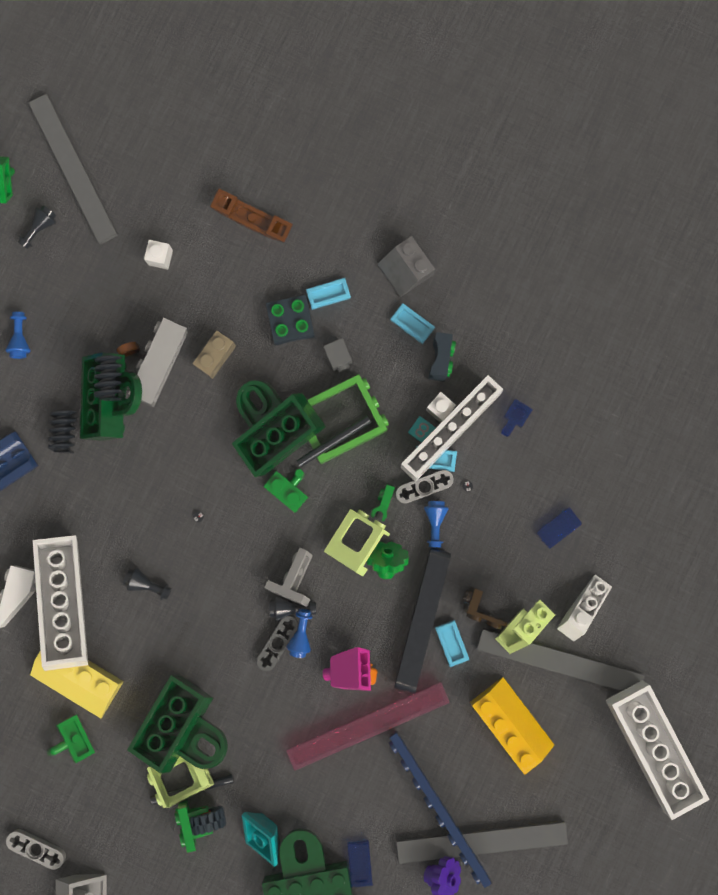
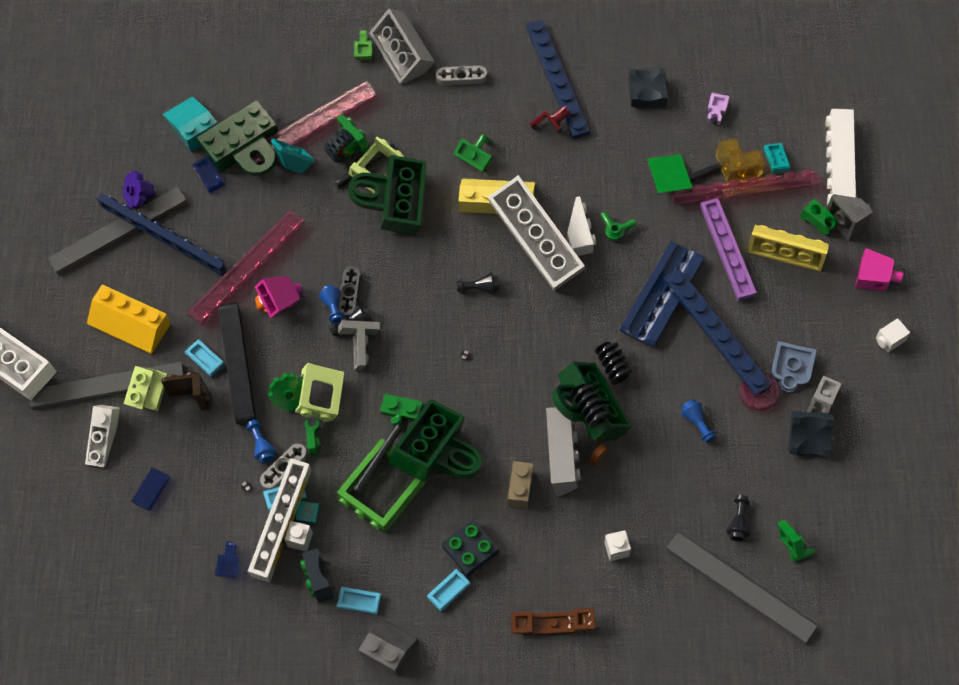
camera: 155 degrees right, 20 degrees down
(211, 872) = (321, 117): none -> clear pink plate
(338, 355) = (411, 537): dark grey brick -> none

